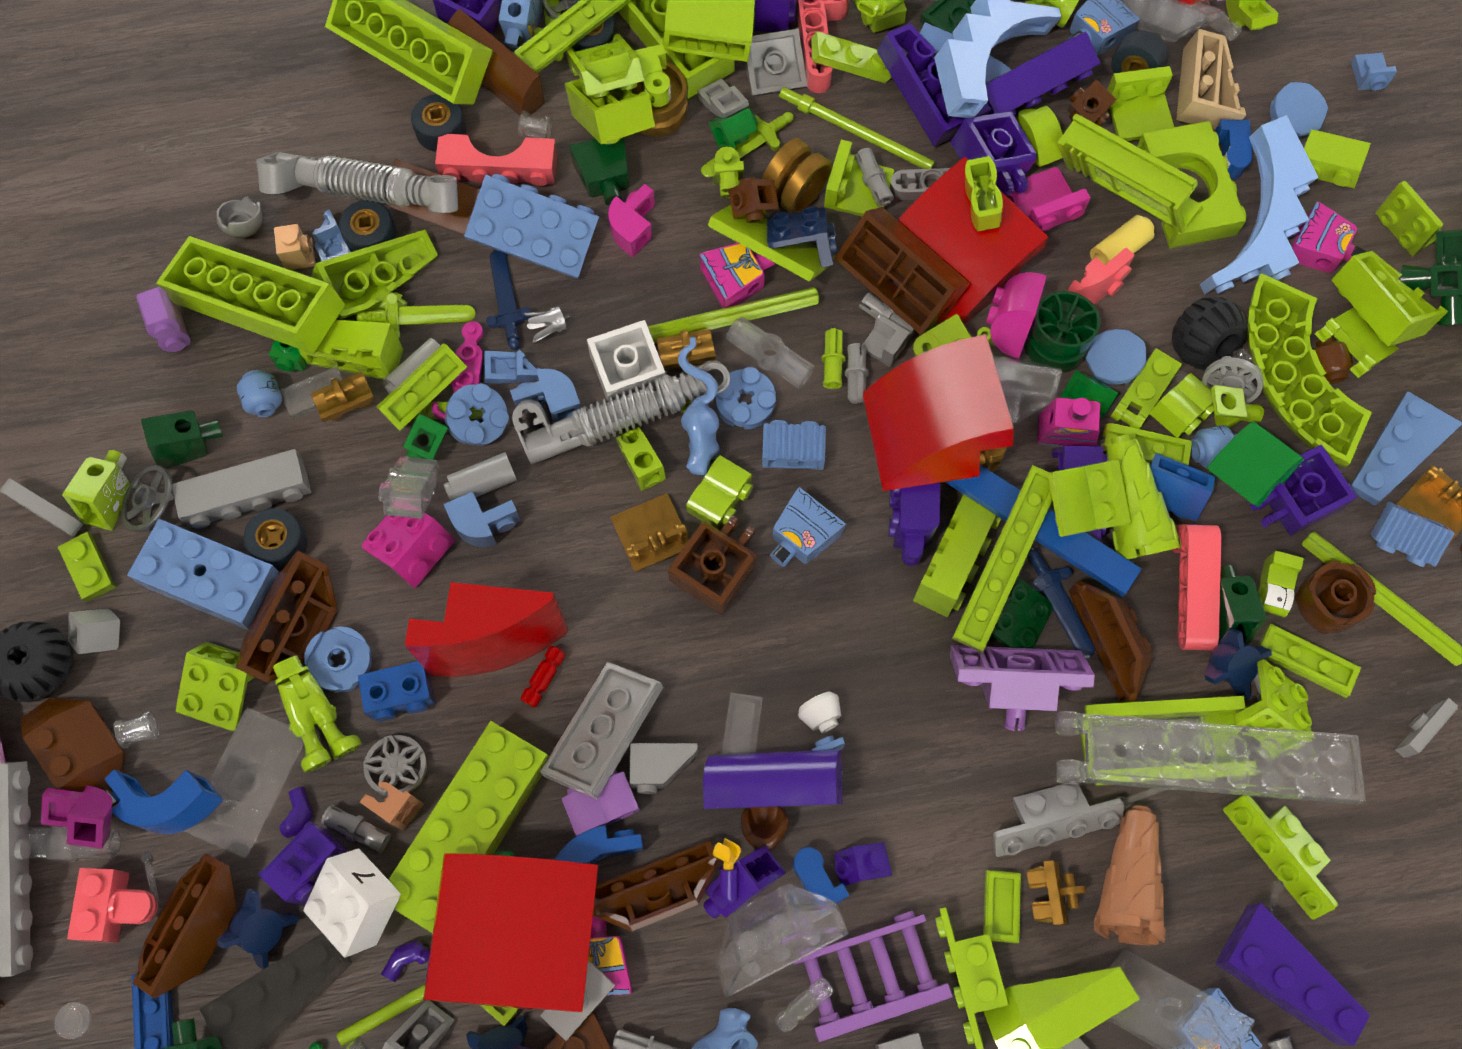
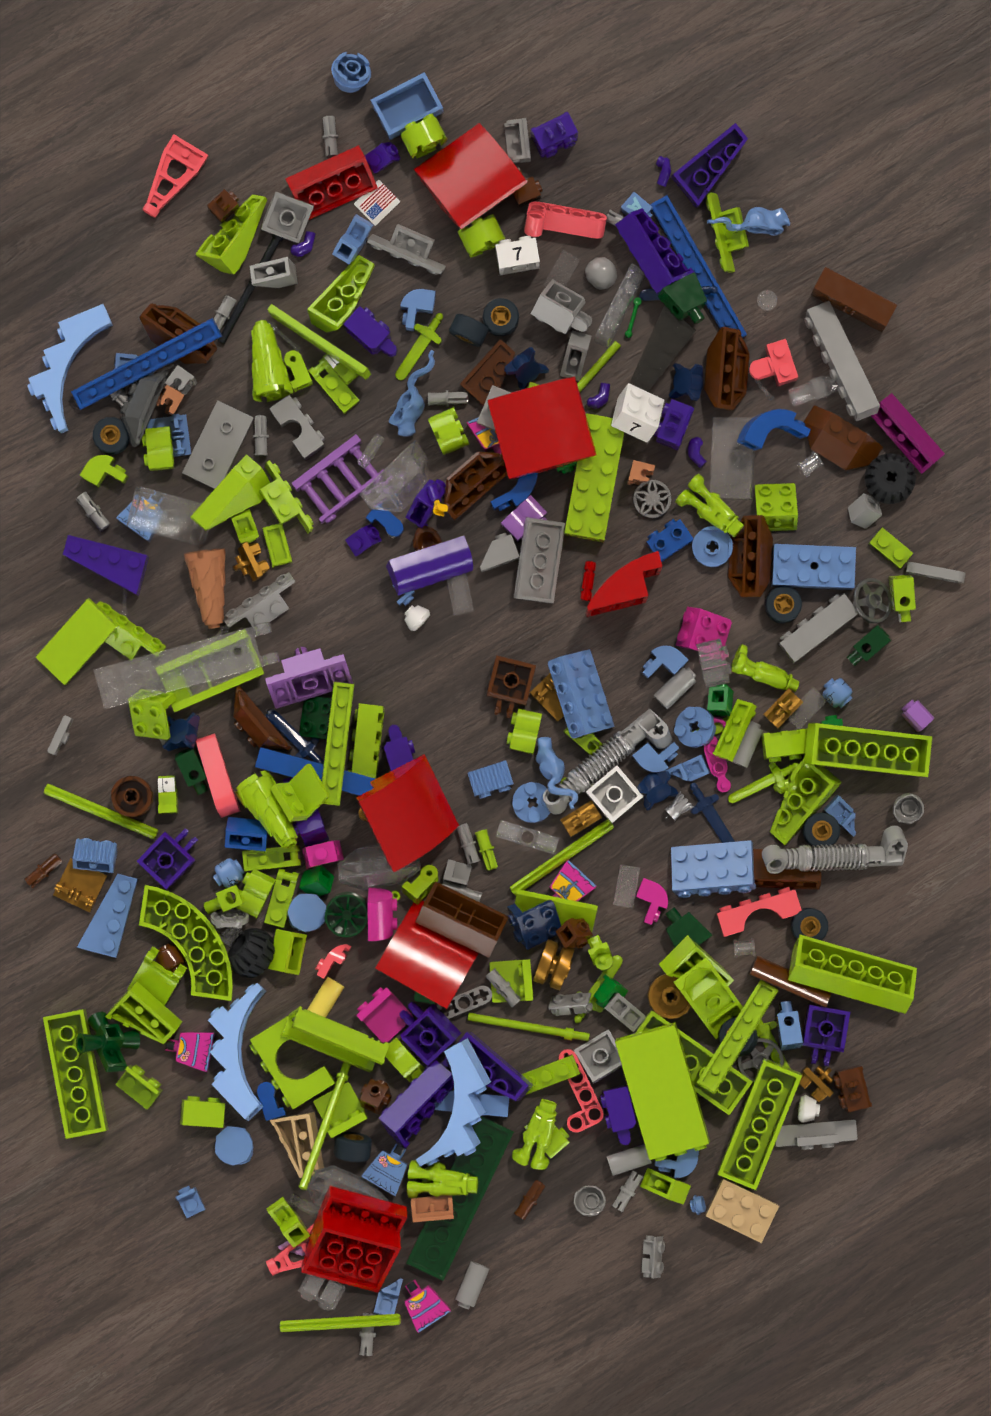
camera: 165 degrees right, 15 degrees up
(83, 813) = (808, 407): magenta brick -> none
(294, 247) = (862, 800): light nougat brick -> none
(349, 457) = (762, 671): none -> lime piece
(355, 828) = (658, 455): light grey pin -> none
(564, 354) = (656, 788): none -> dark blue piece
(619, 511) = (580, 693): none -> medium blue bracket
(655, 81) = (668, 990): lime leg -> none
(658, 251) = (626, 886): none -> clear tile
(666, 989) = (448, 431): none -> lime brick
(783, 129) = (562, 1004): none -> light grey hinge
(804, 530) = (465, 725): medium blue torso -> none
(983, 193) = (428, 980): lime brick -> none
(1047, 952) = (245, 527): none -> lime bracket
(1159, 313) = (288, 951): none -> lime brick
(1181, 73) = (341, 1078): none -> lime bar
(1255, 463) = (204, 861): green slope -> none
(1310, 661) = (137, 755): lime tile -> none
(1370, 864) = (77, 641): none -> lime tile

